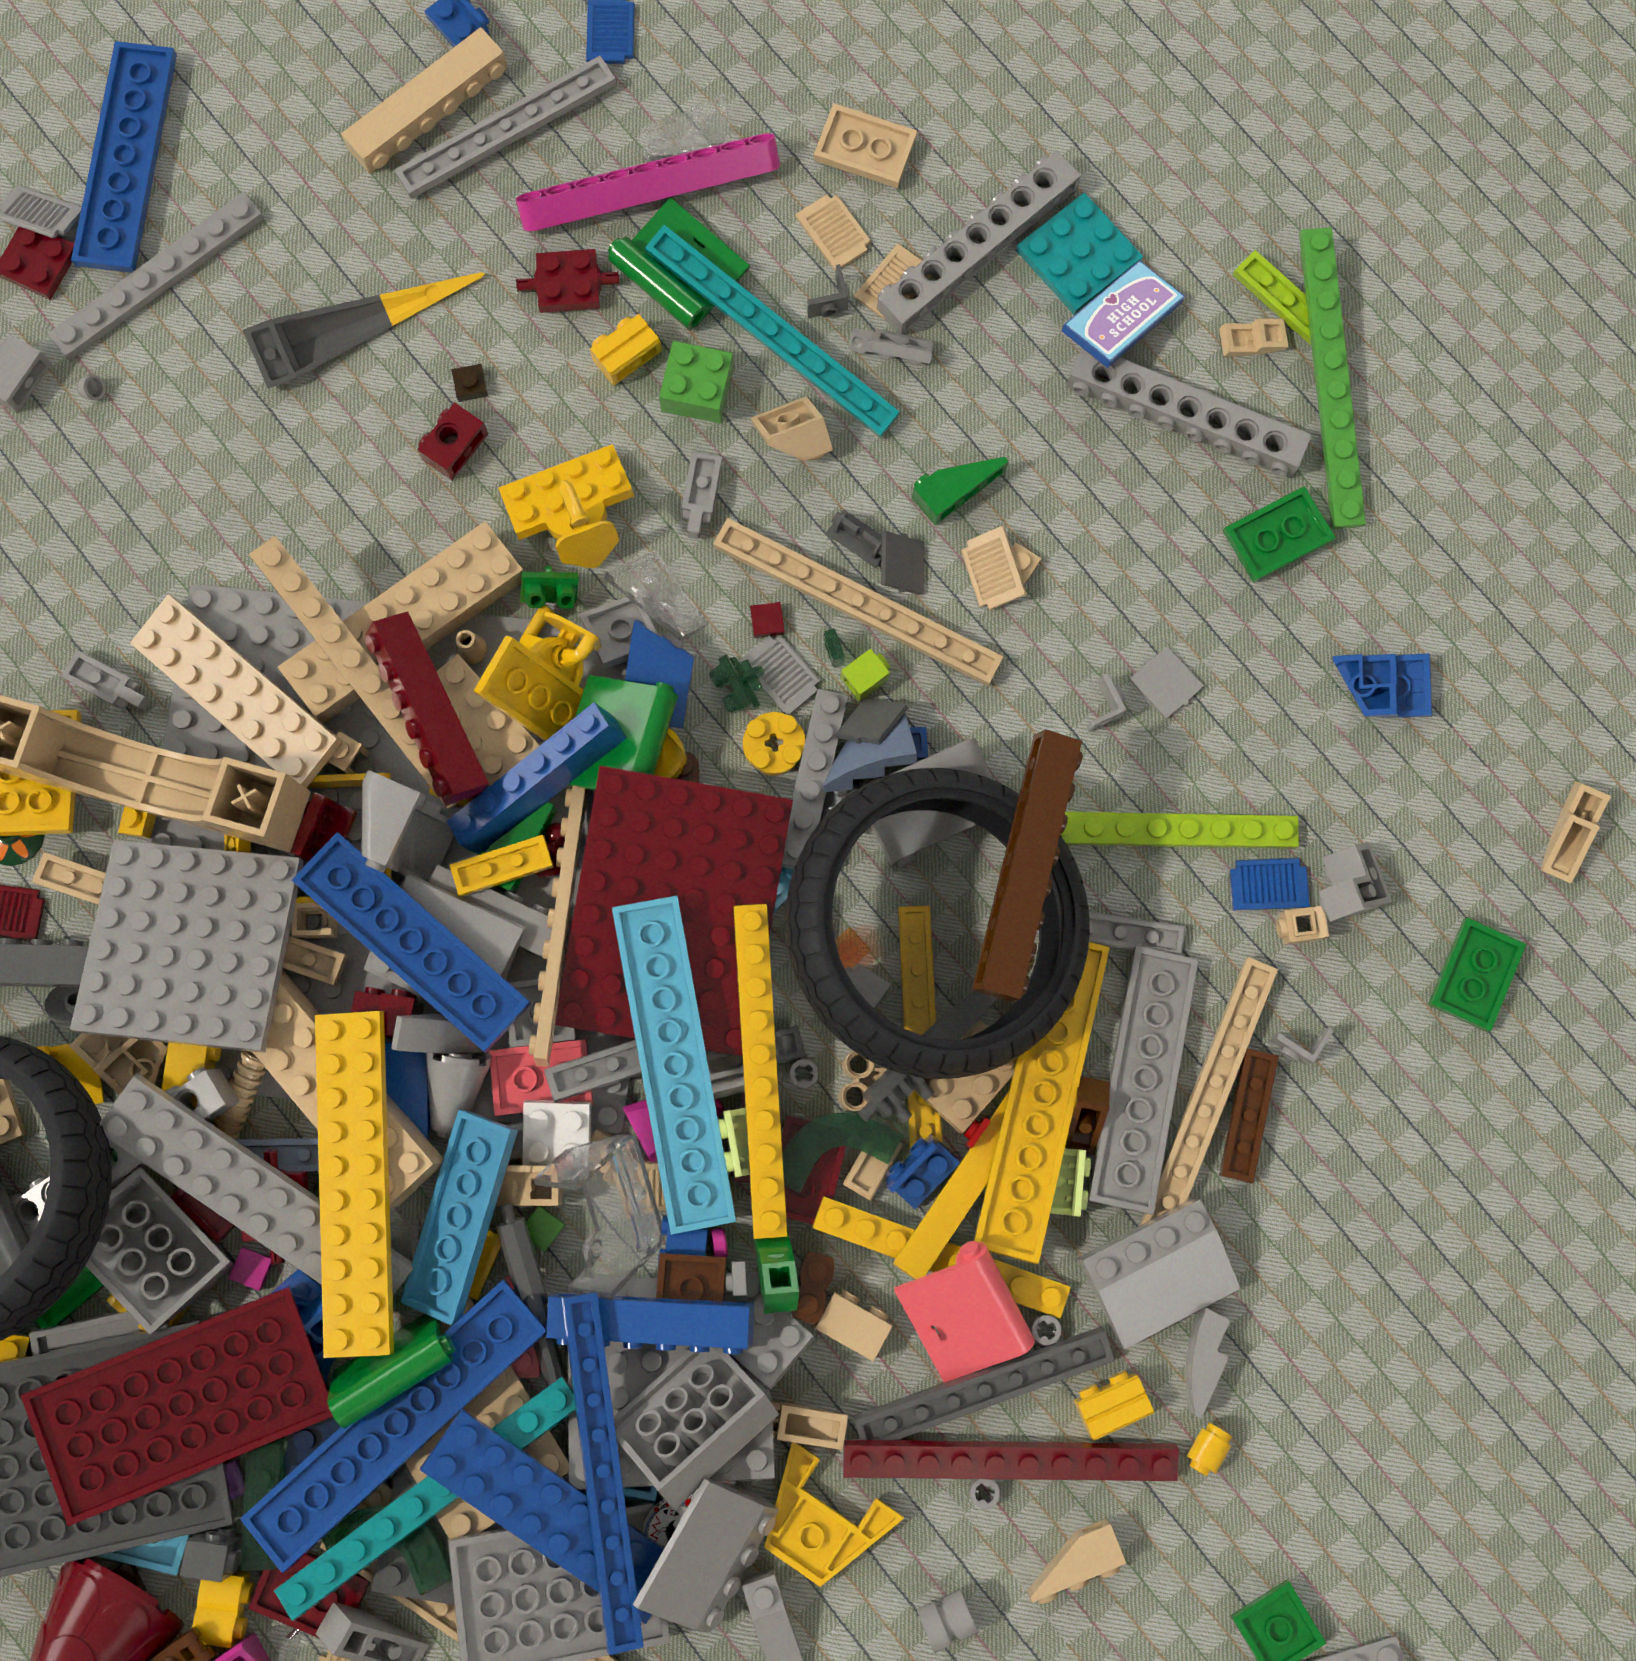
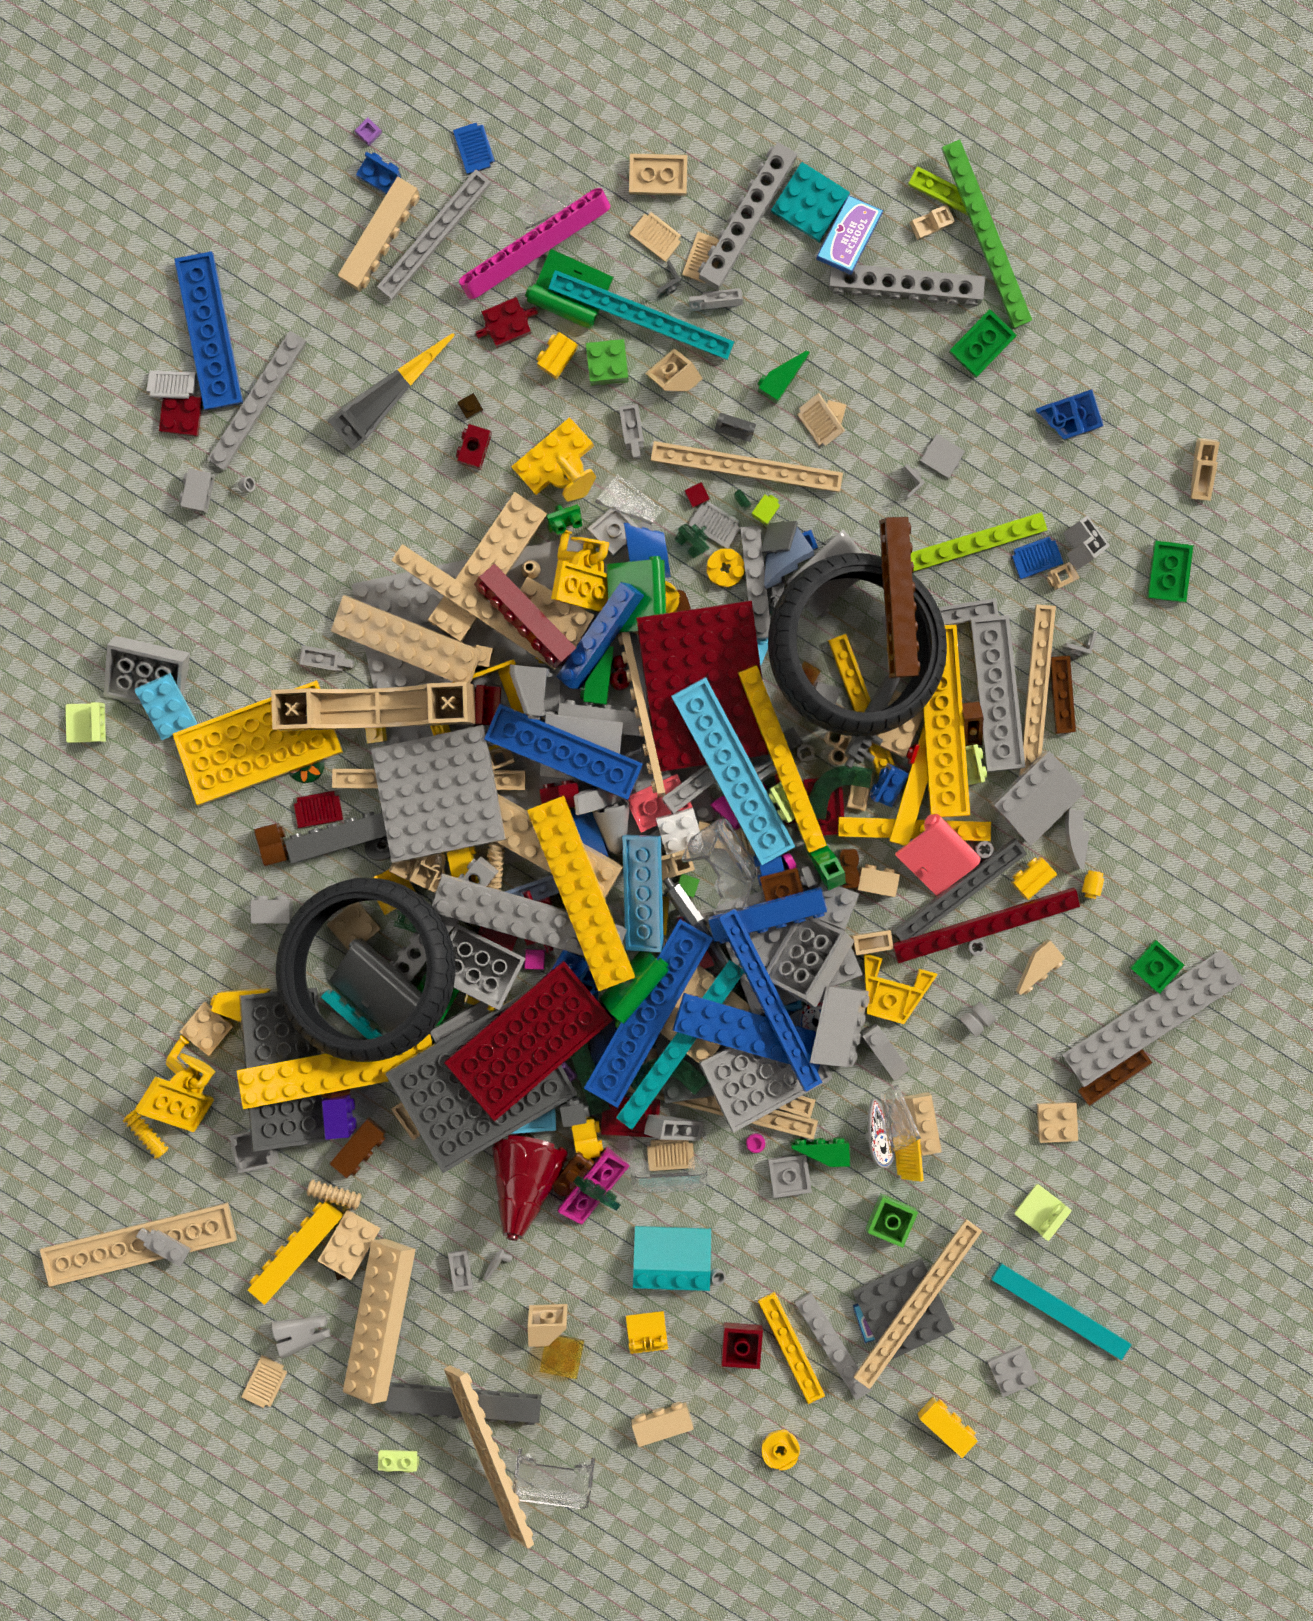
camera: 20 degrees left, 10 degrees up
(501, 866) = (597, 692): yellow plate -> none
(902, 563) = (766, 435): dark grey piece -> none

